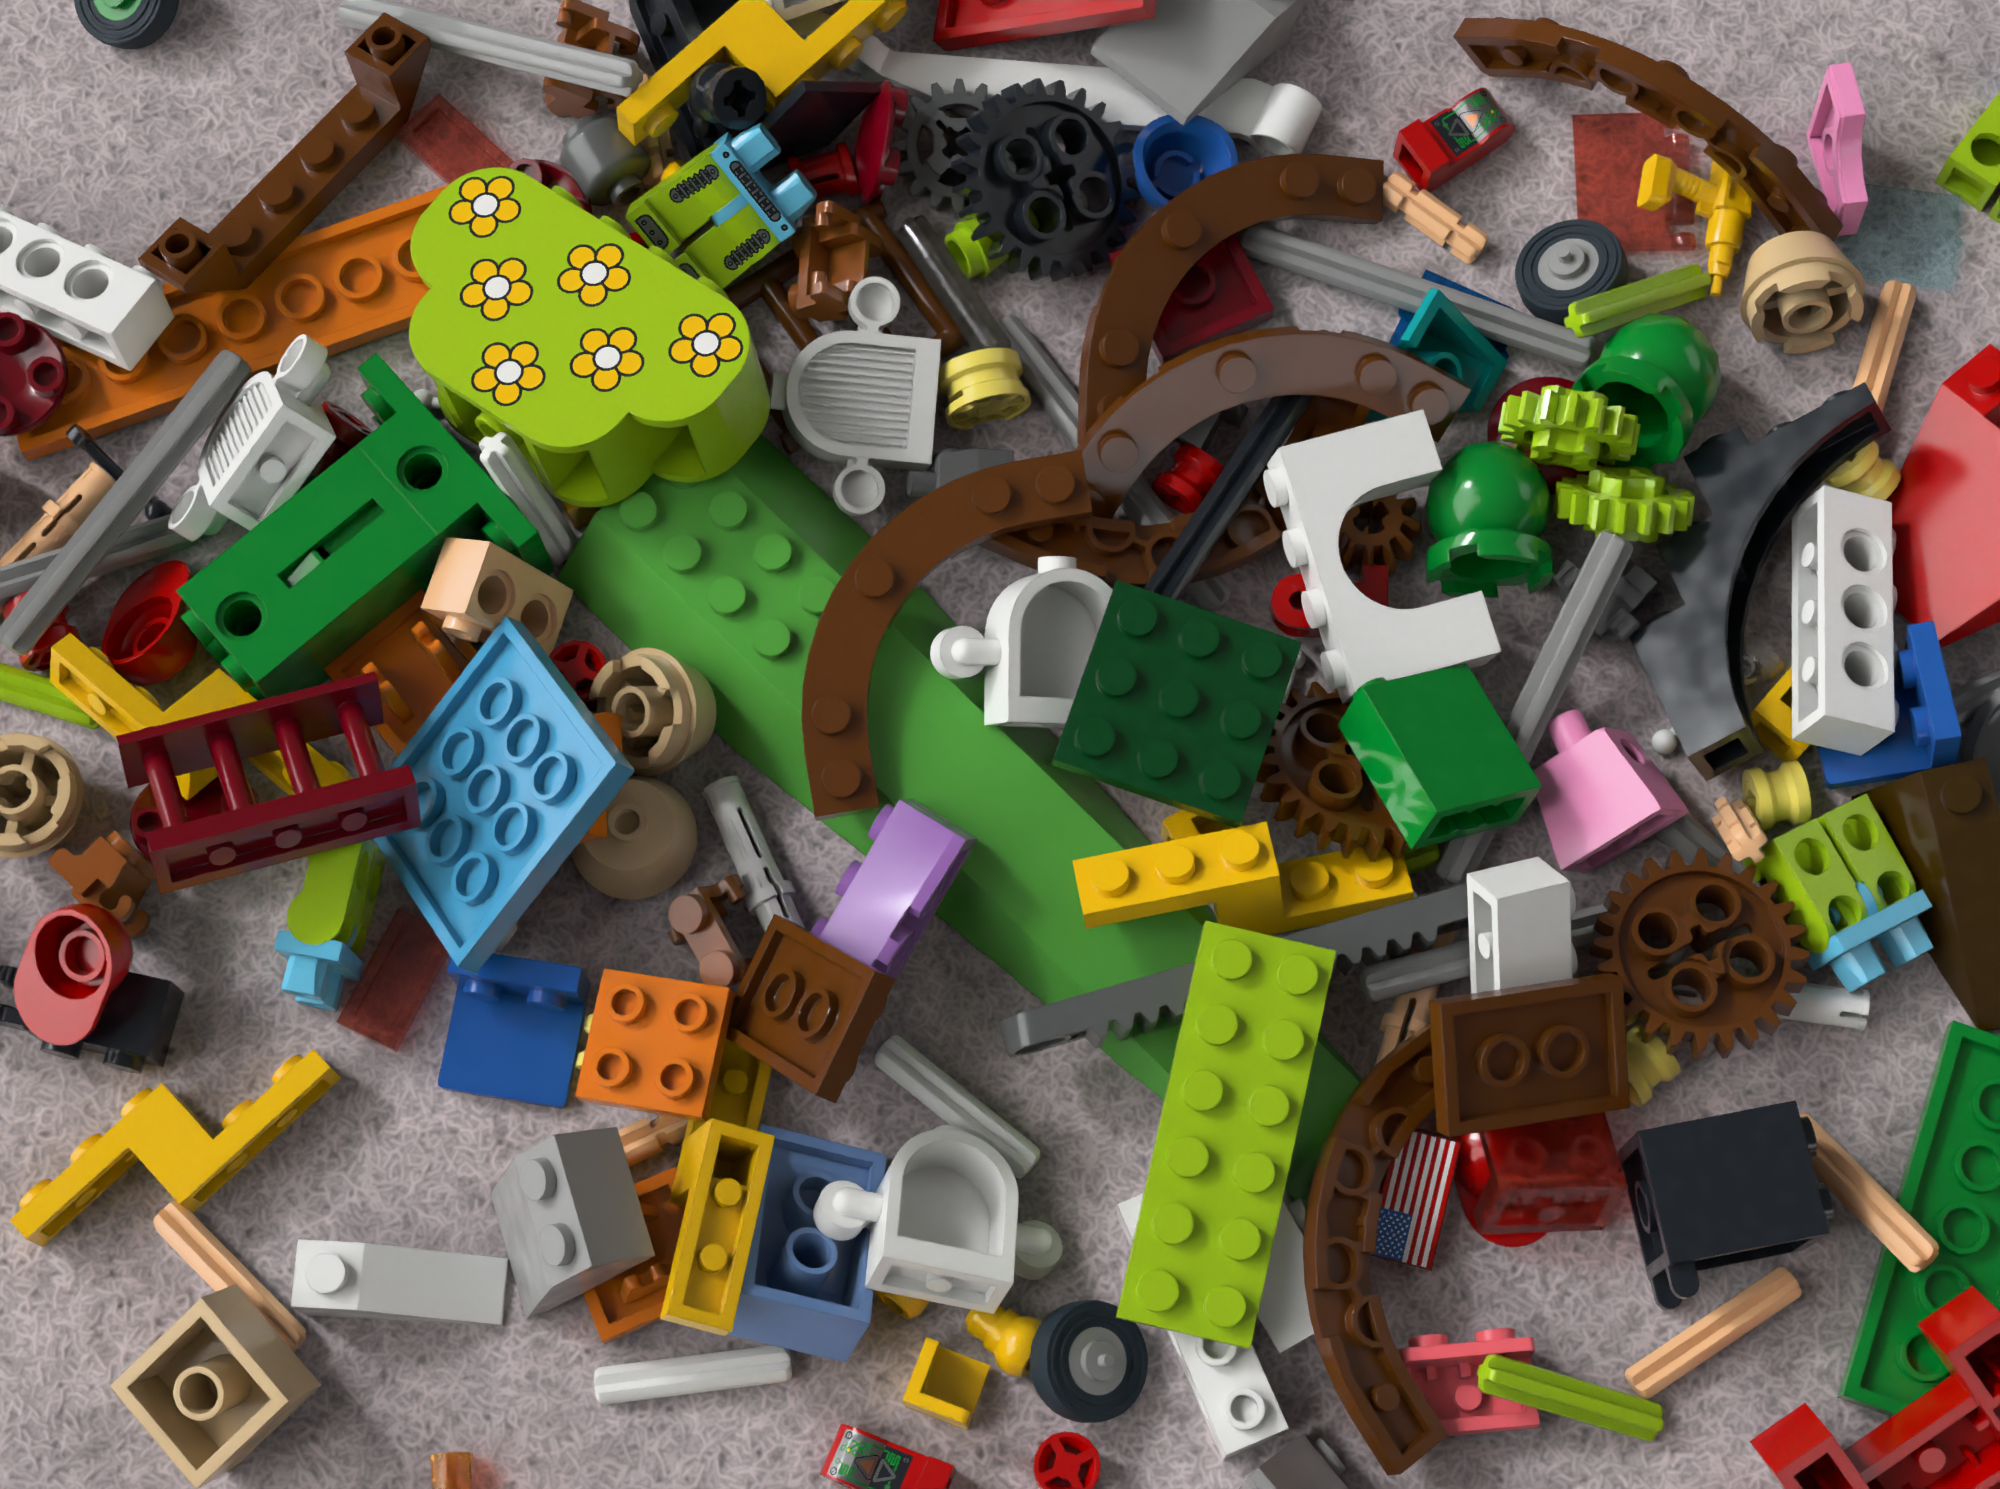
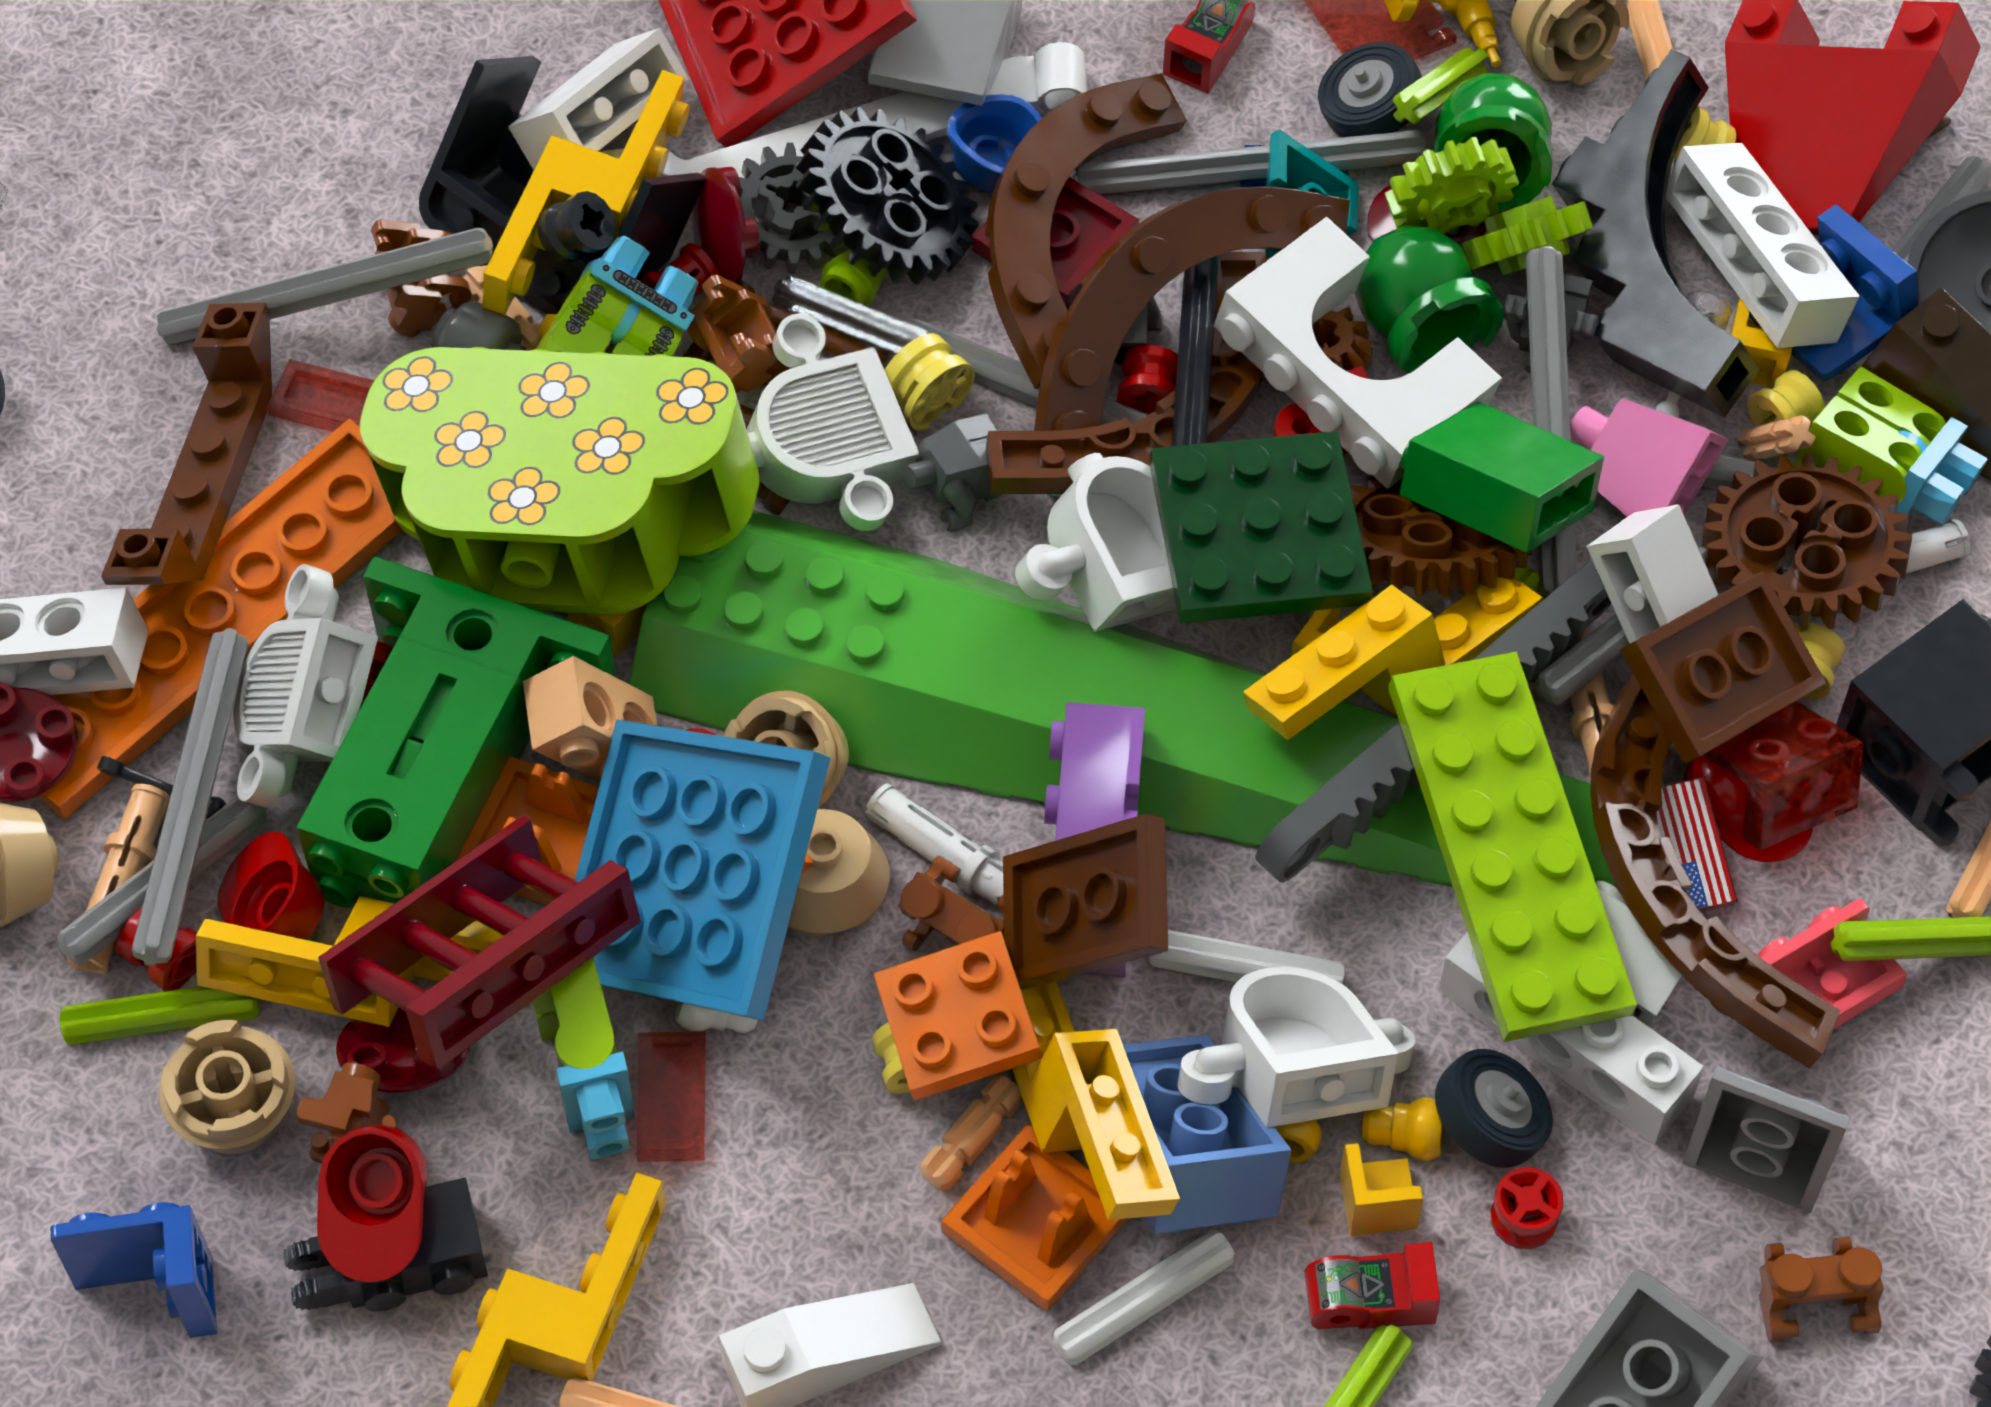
camera: 30 degrees left, 15 degrees down
(515, 1030) = (806, 1076): blue bracket -> none
(528, 494) = (563, 601): white axle -> none
(569, 1217) = (962, 1196): light grey slope -> none
(883, 580) = (938, 556): reddish brown plate -> none
(1434, 218) = (1229, 103): light nougat axle -> none

